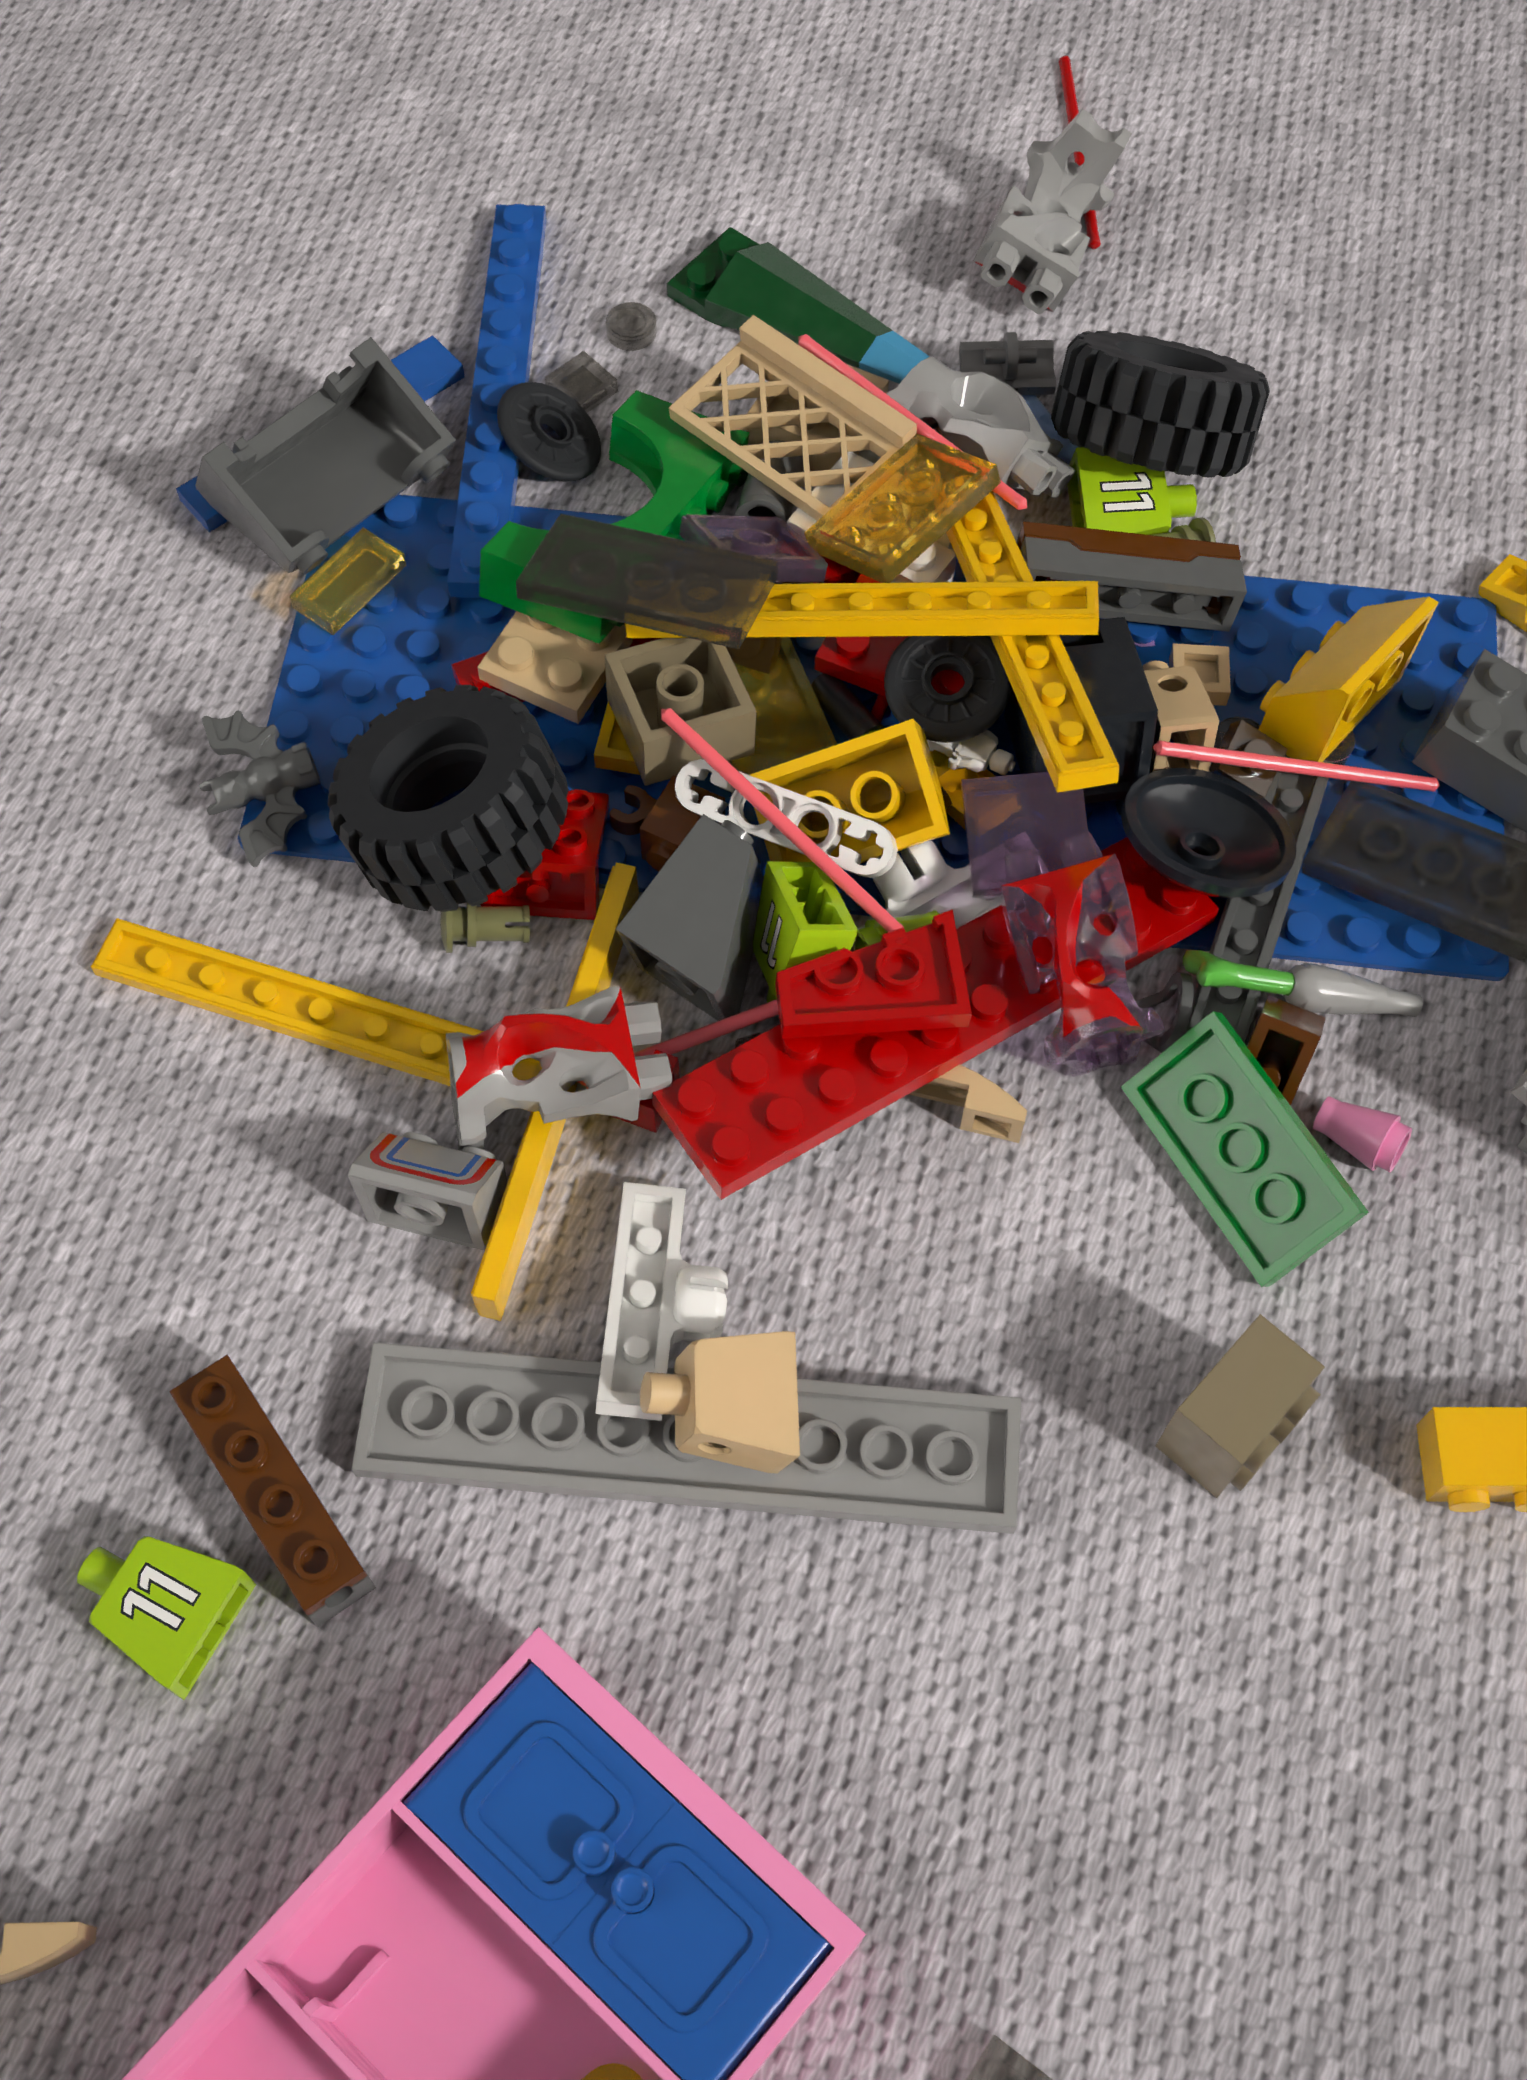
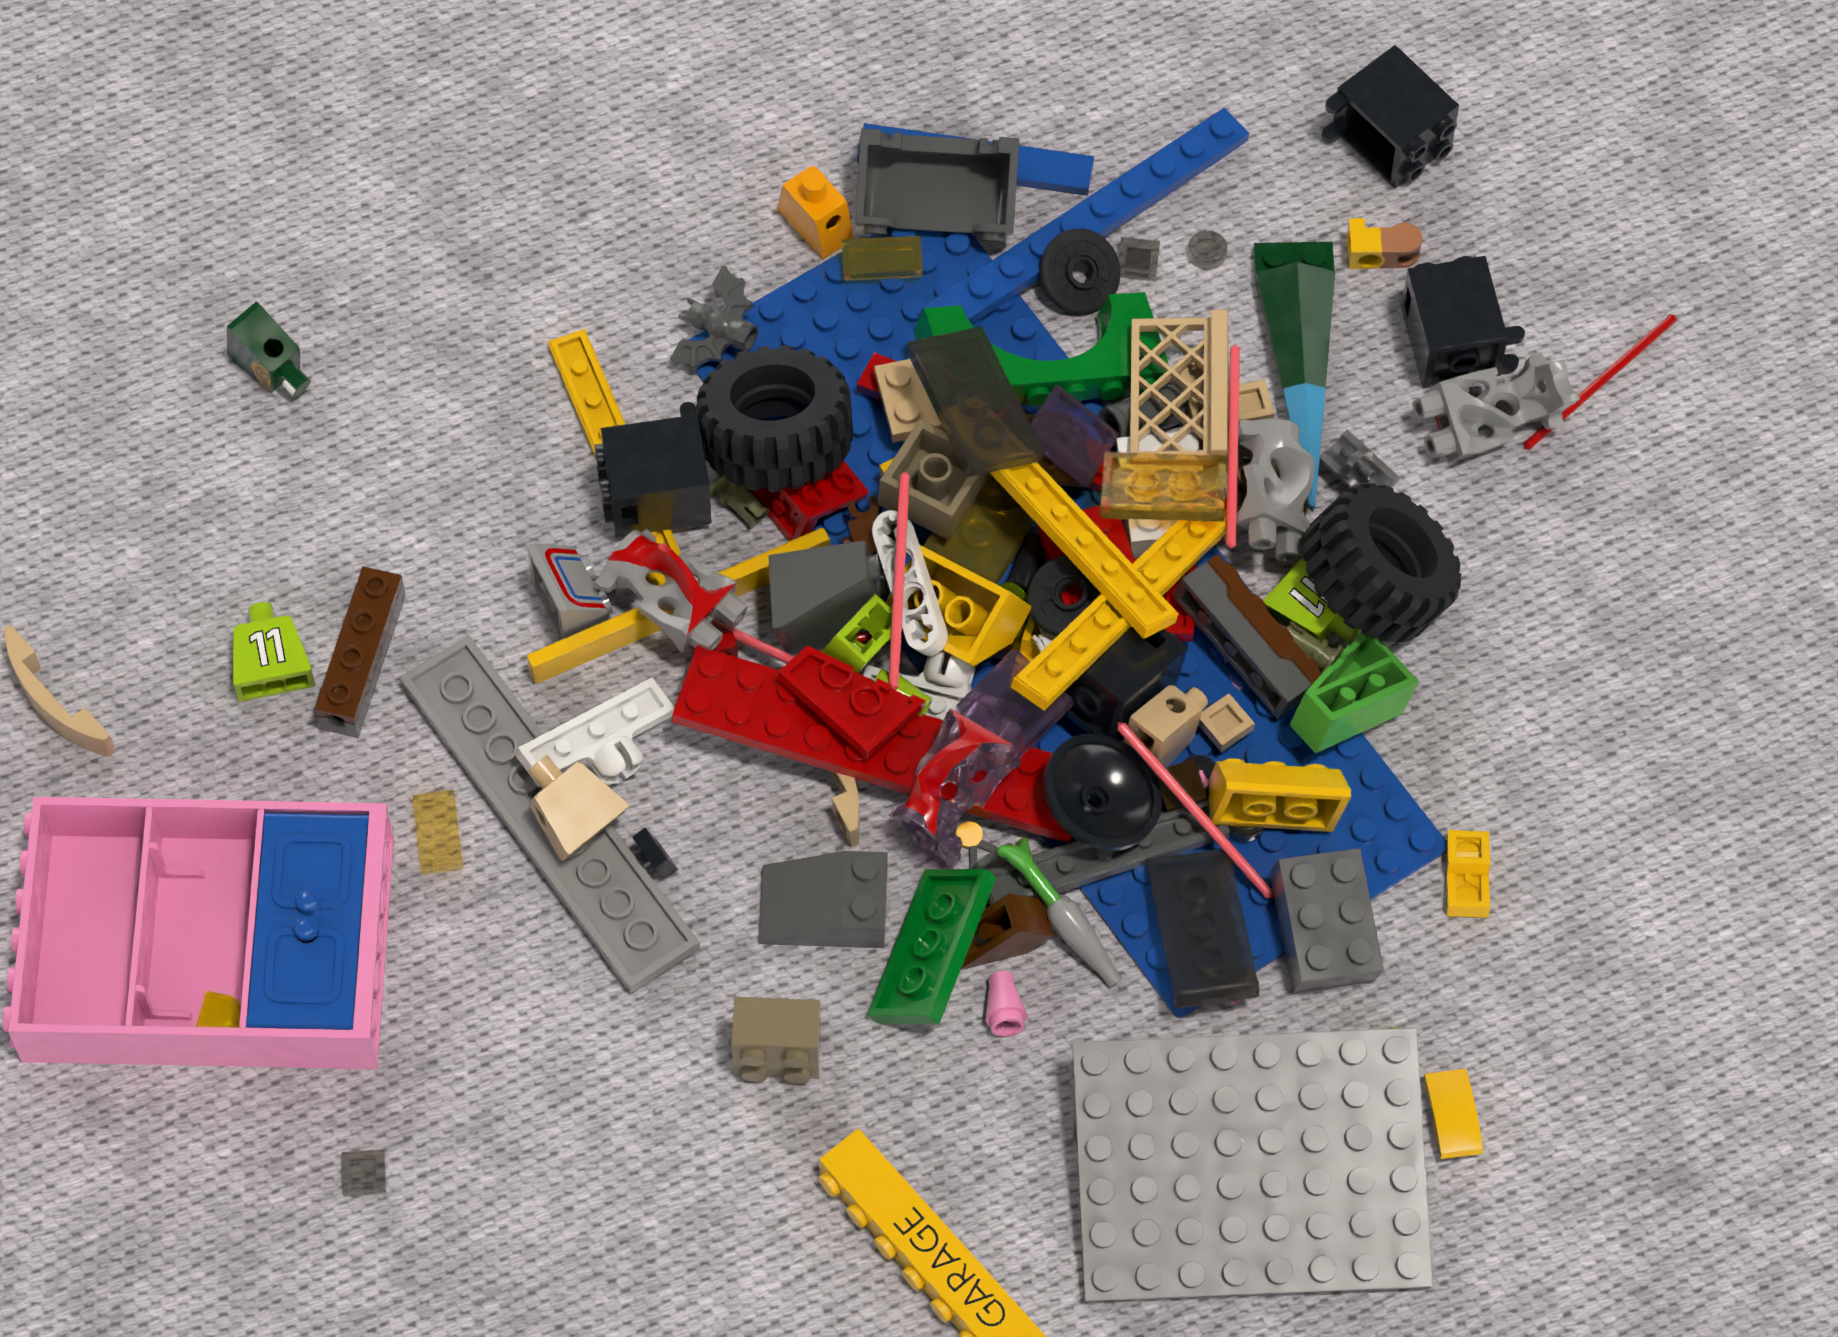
camera: 50 degrees right, 0 degrees up
(230, 592) = (812, 204): none -> light orange torso
(386, 971) = (654, 474): none -> black container
(595, 1593) = (438, 832): none -> clear yellow tile
(662, 80) = (1393, 117): none -> black container
(774, 196) = (1382, 246): none -> leg
(857, 1360) = (653, 855): none -> black plate
(927, 184) = (1456, 320): none -> black container
(1078, 1217) = (825, 900): none -> dark grey slope
(1277, 538) = (1354, 694): none -> bright green wedge

